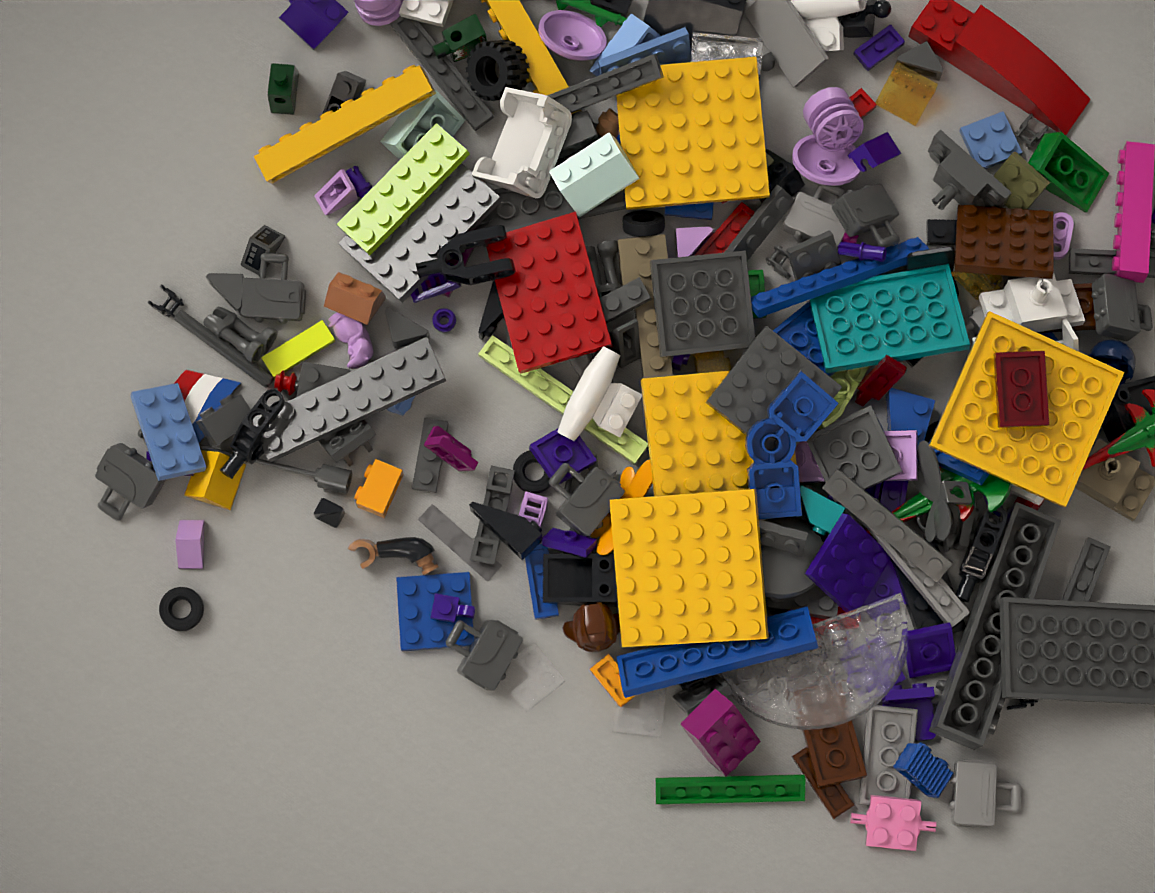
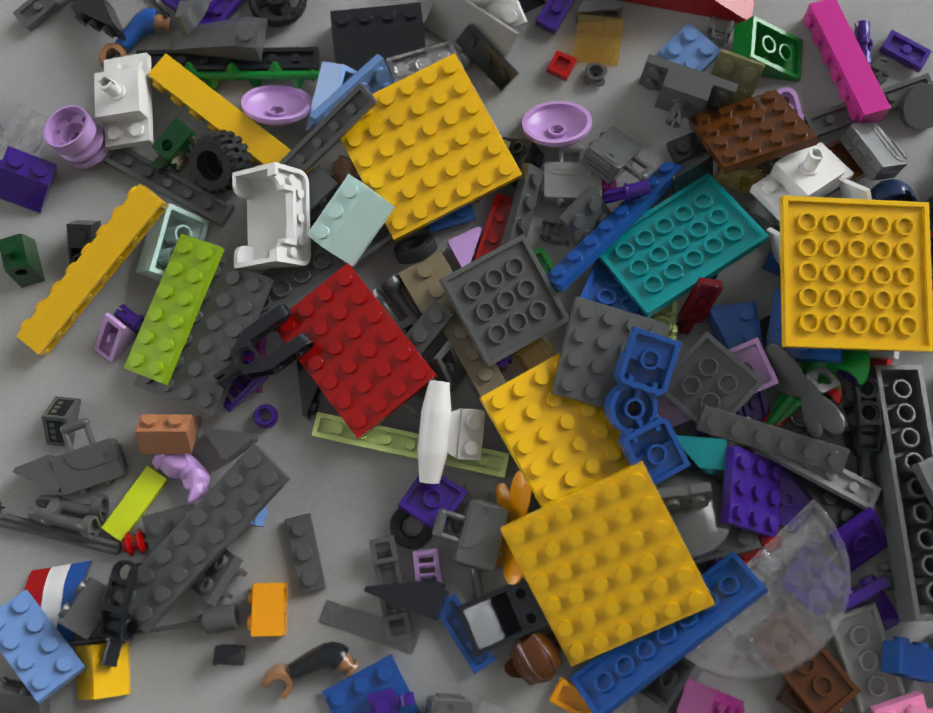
camera: 25 degrees left, 0 degrees up
(450, 450) = (322, 541): magenta bracket -> none
(569, 542) = (476, 584): dark purple plate -> none
(790, 68) = (486, 57): none -> black plate
(833, 119) = (547, 84): lavender wheel -> none
(875, 152) = (599, 97): dark purple hinge -> none
(888, 119) = (595, 68): none -> dark grey plate
(1021, 389) = (848, 257): dark red plate -> none

